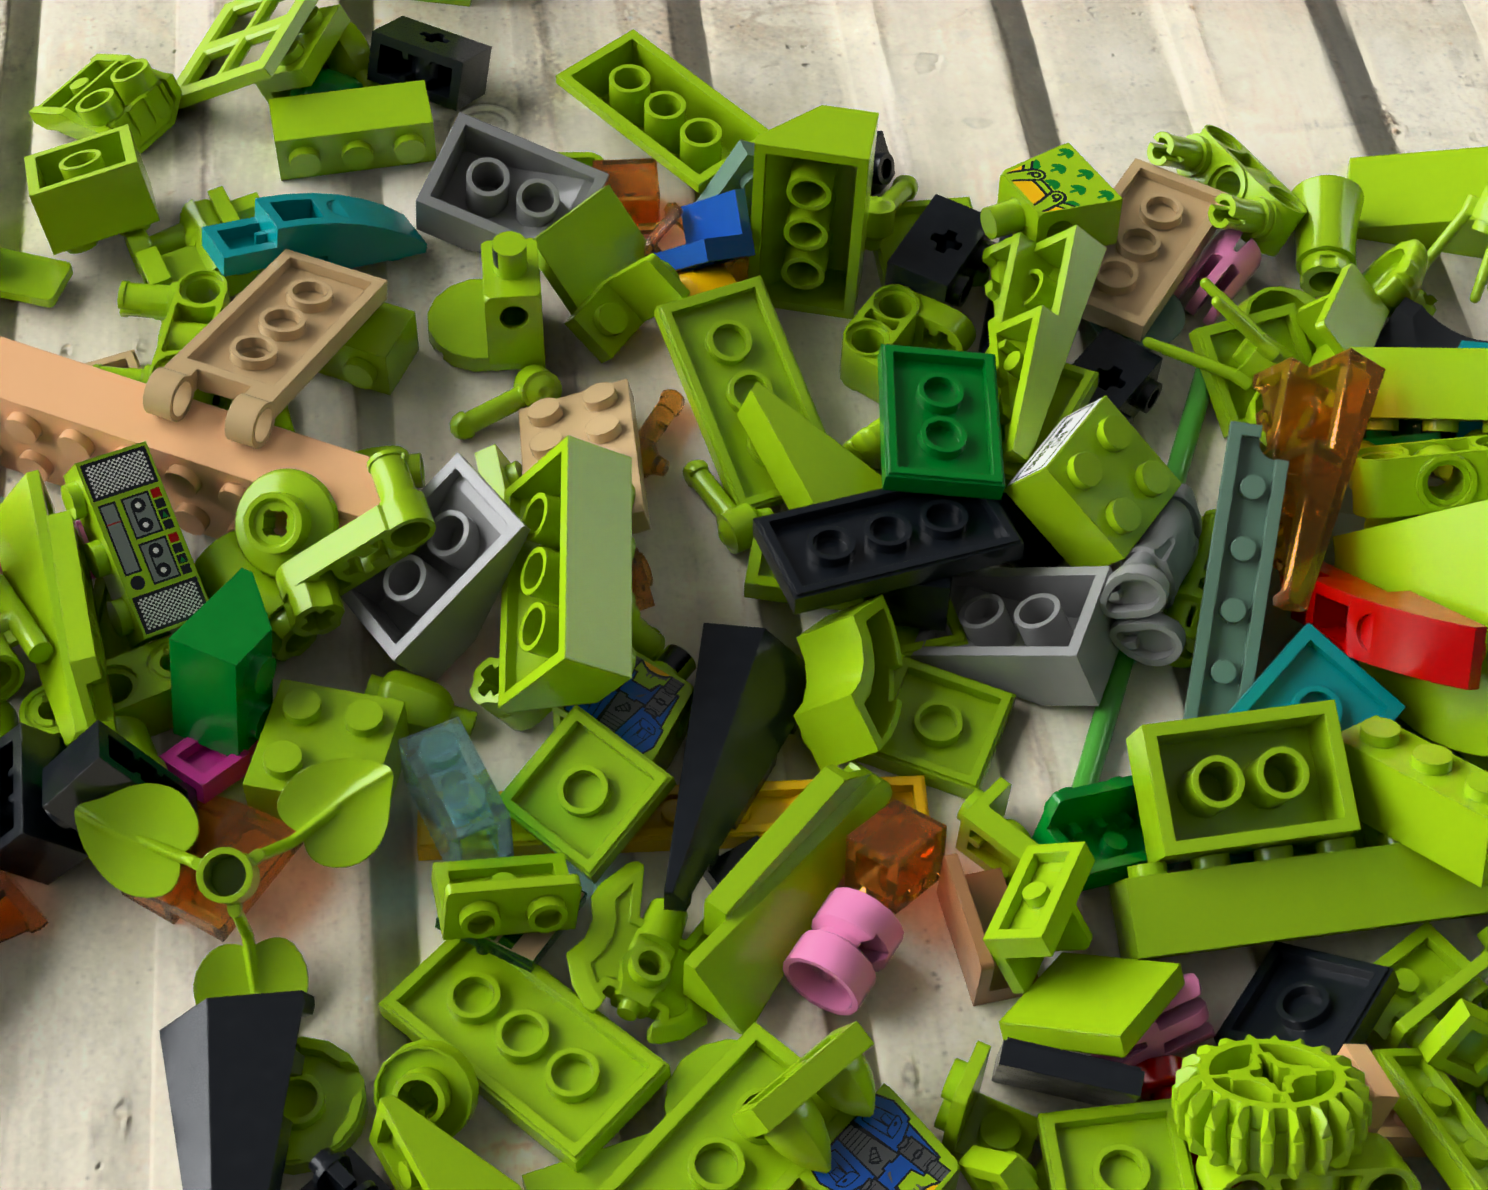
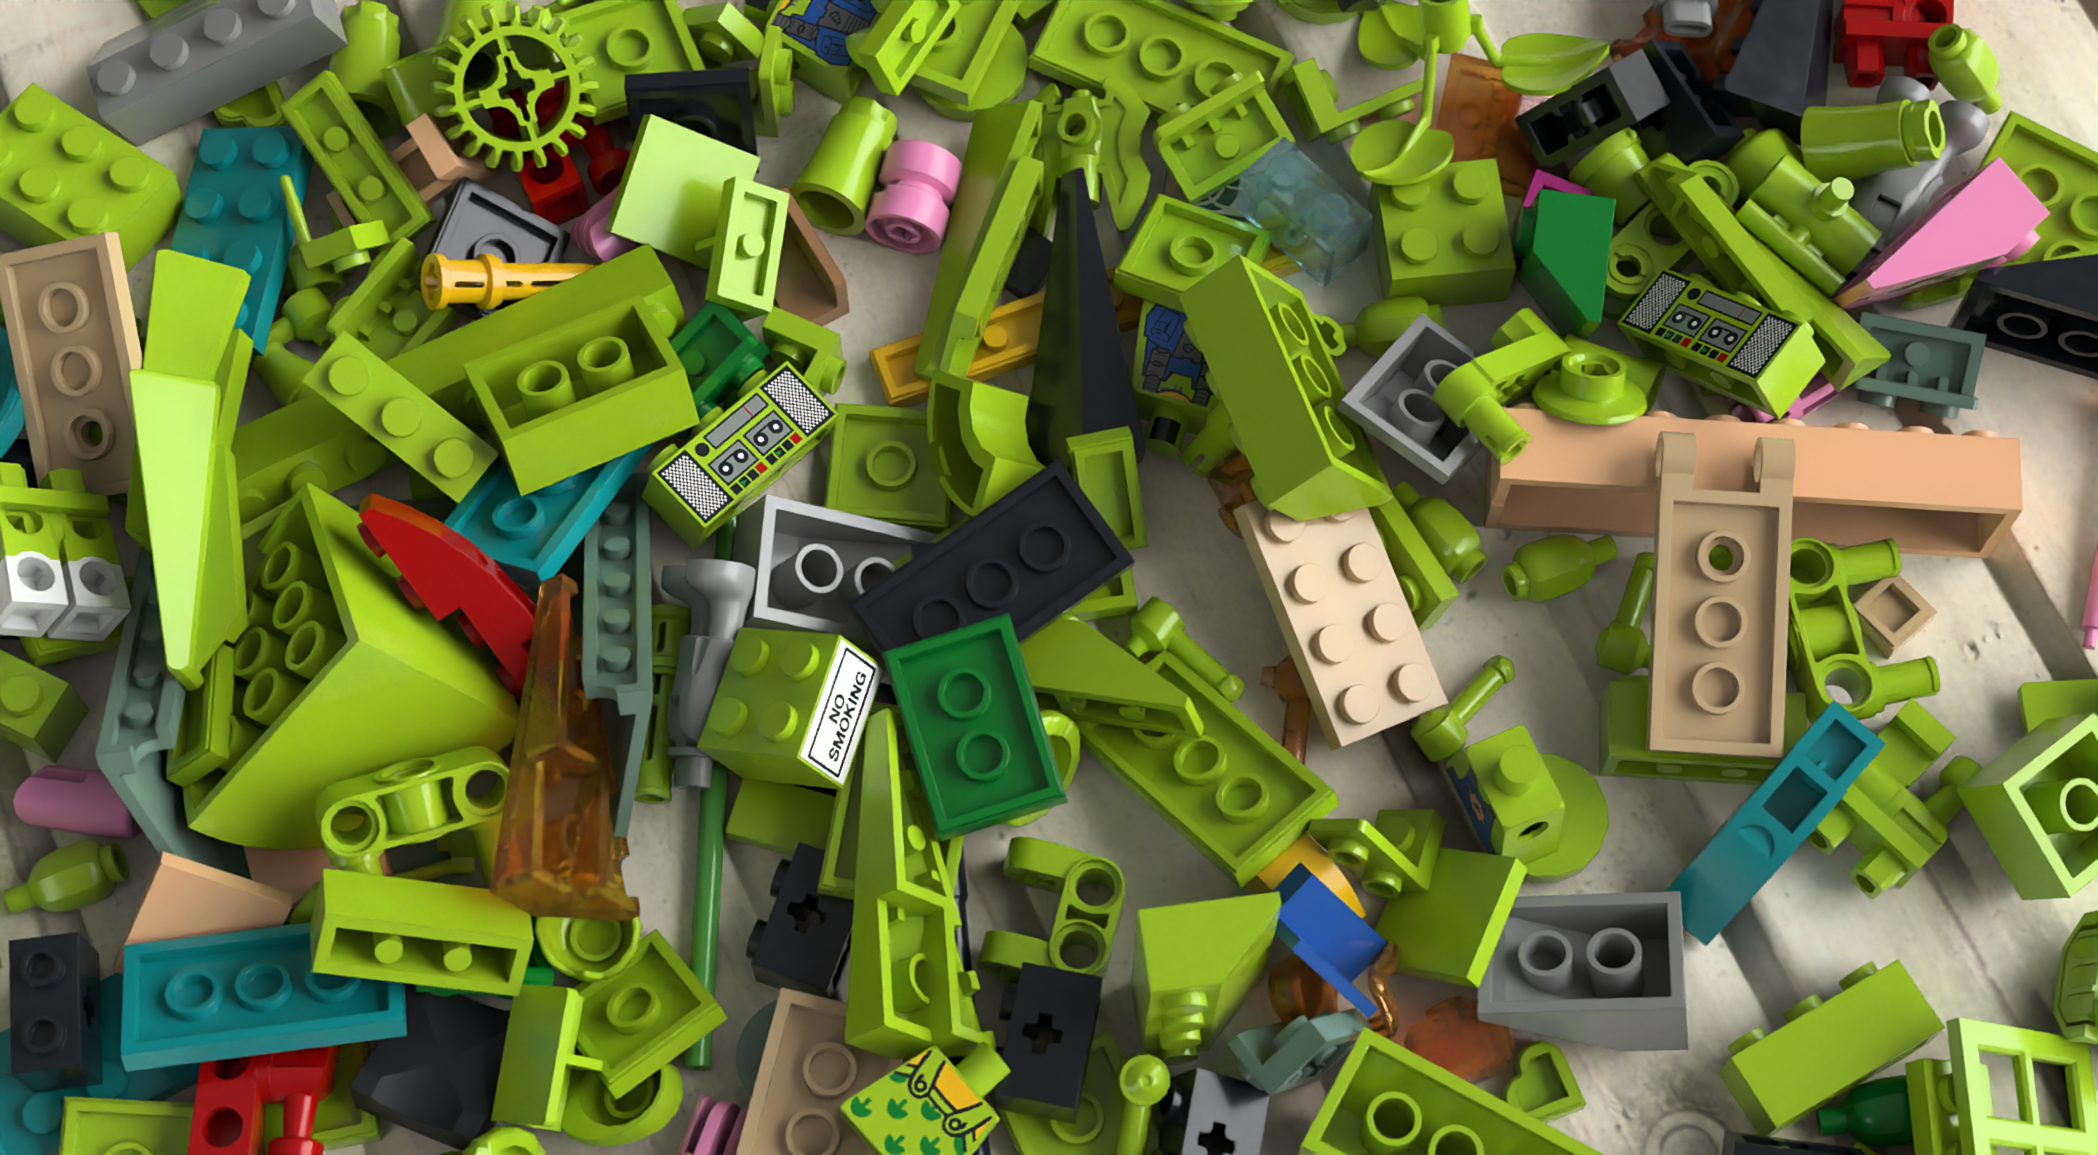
camera: 165 degrees right, 15 degrees up
(346, 913) = (1314, 99): none -> lime bracket
(350, 410) = (1623, 644): none -> lime piece
(749, 612) = (1108, 475): none -> lime tile
(895, 855) = (890, 293): clear orange brick -> none
(912, 1001) = (845, 167): none -> lime plant
(1080, 734) = (738, 453): none -> brick
(1254, 354) = (644, 978): lime plant -> none
(1316, 952) = (489, 279): none -> yellow pin

